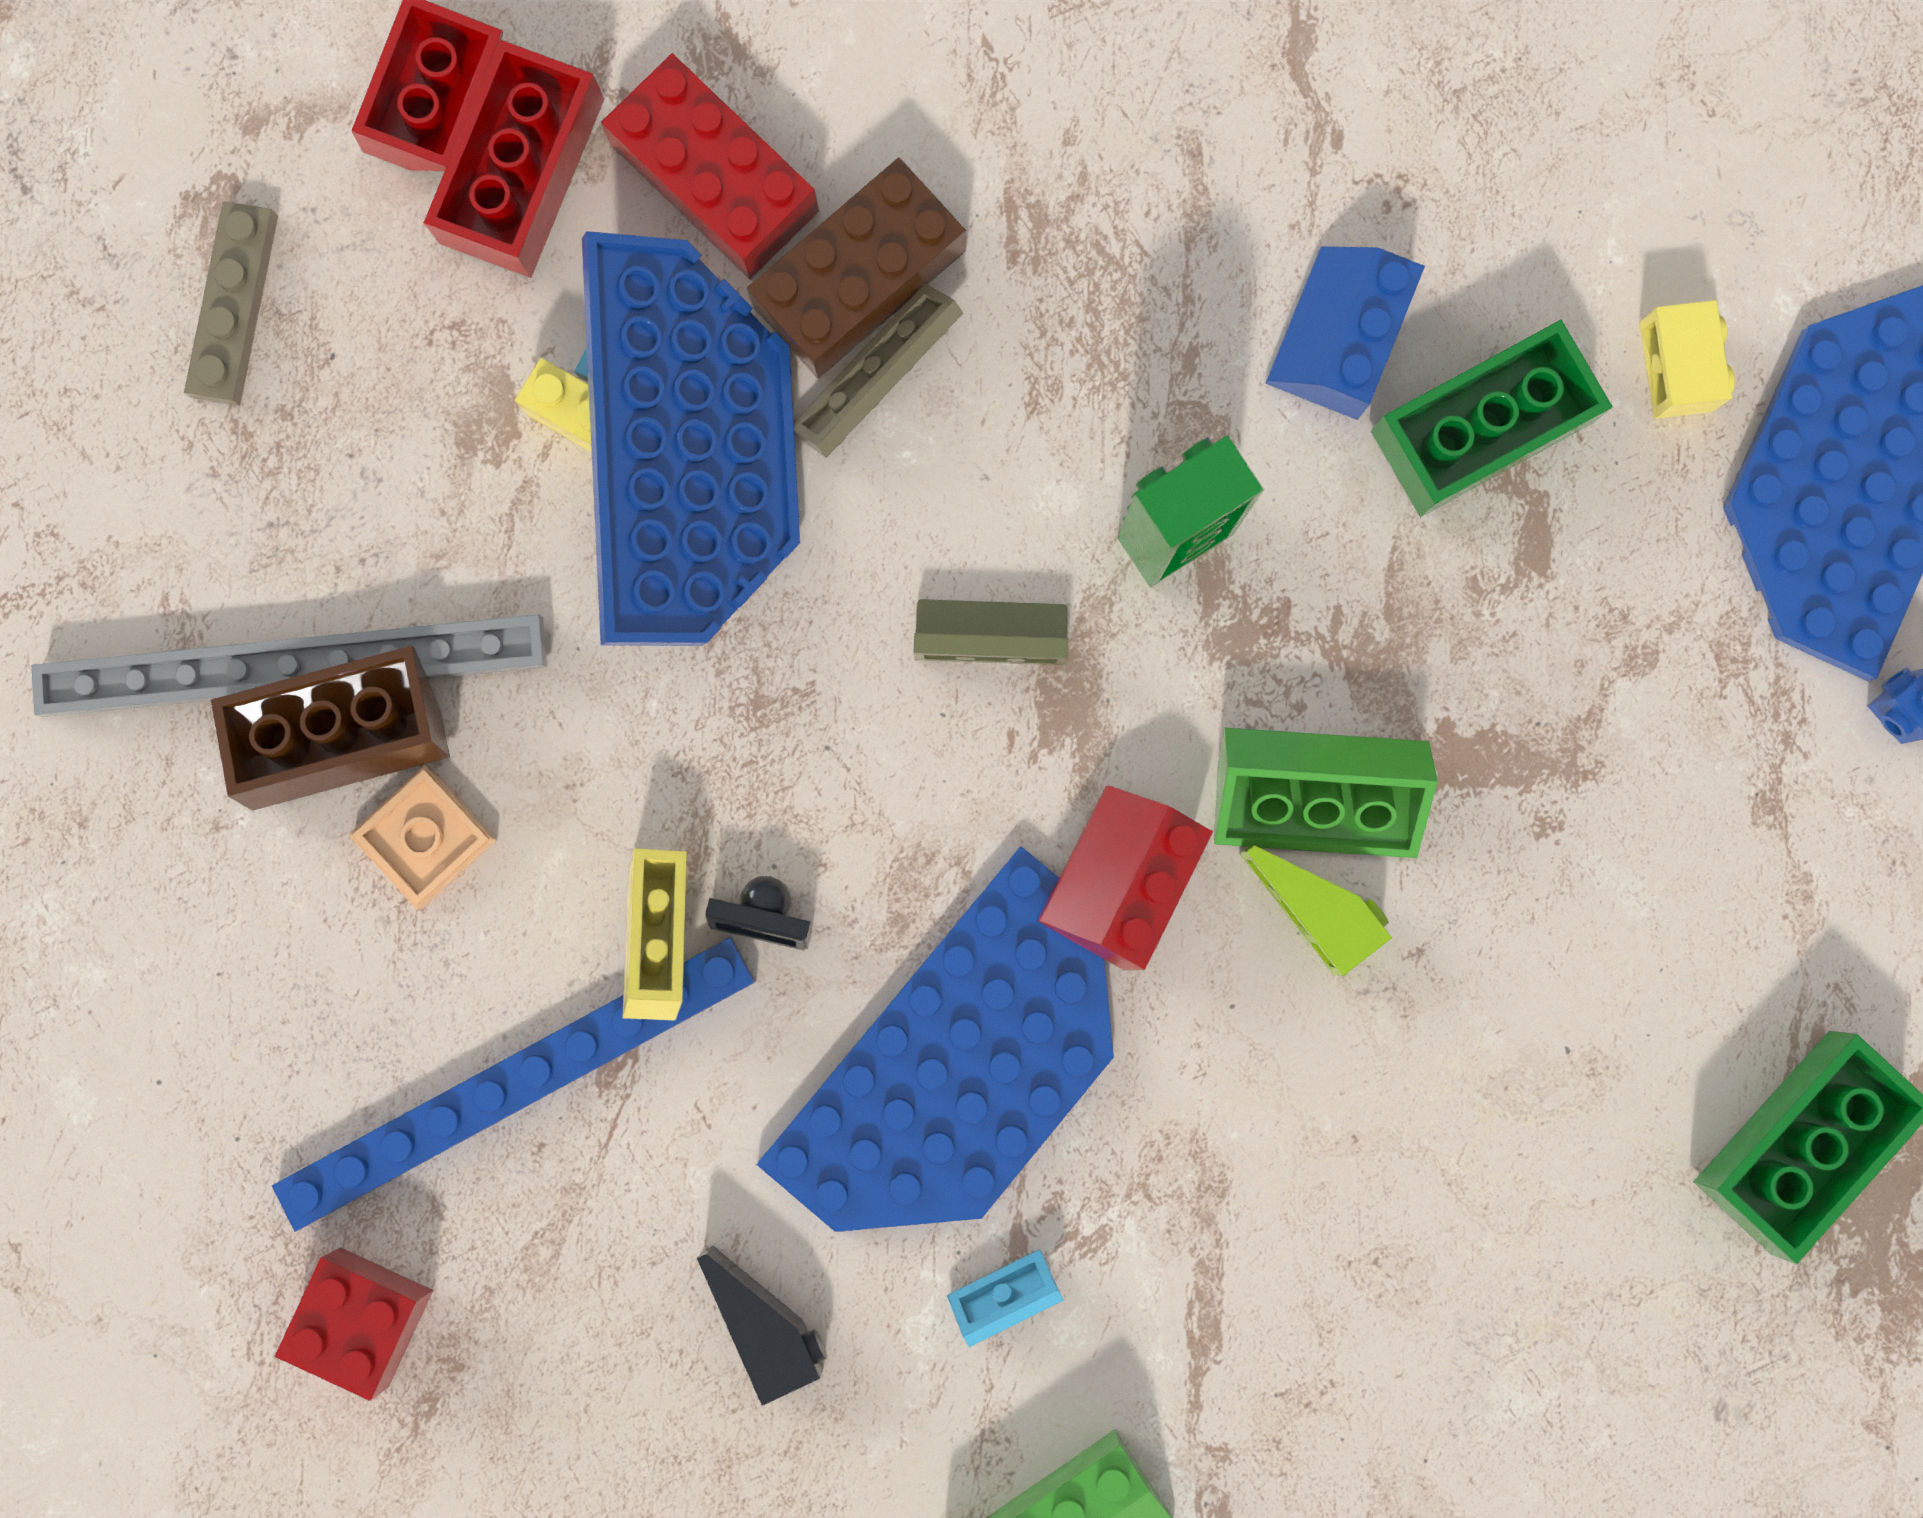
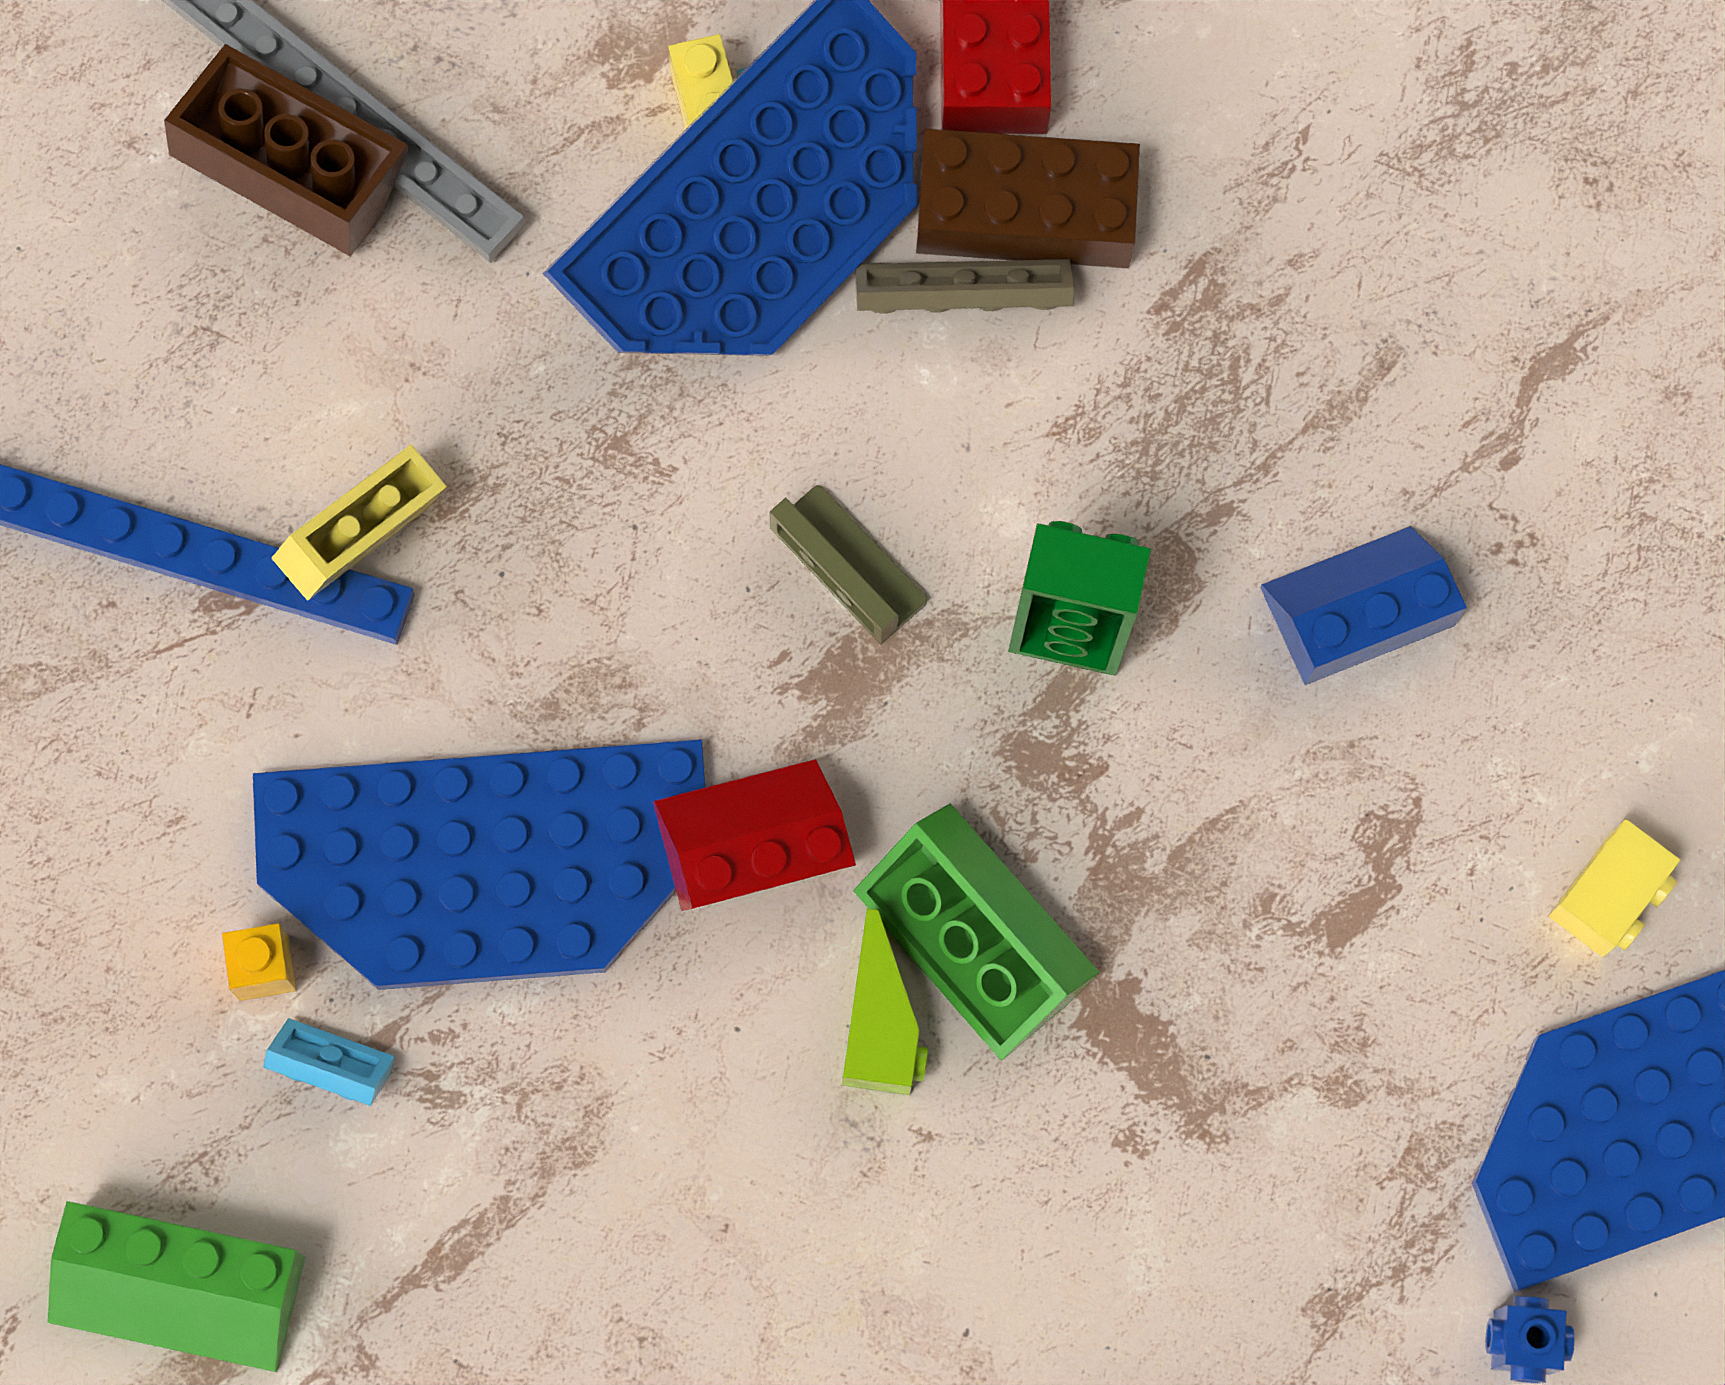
camera: 40 degrees right, 10 degrees down
(422, 837) = (268, 295): light nougat tile -> none
(761, 915) = (452, 594): black tile -> none
(766, 1333) = (124, 908): black slope -> none
(893, 1283) = (258, 962): none -> yellow brick
(1491, 418) = (1404, 776): green brick -> none

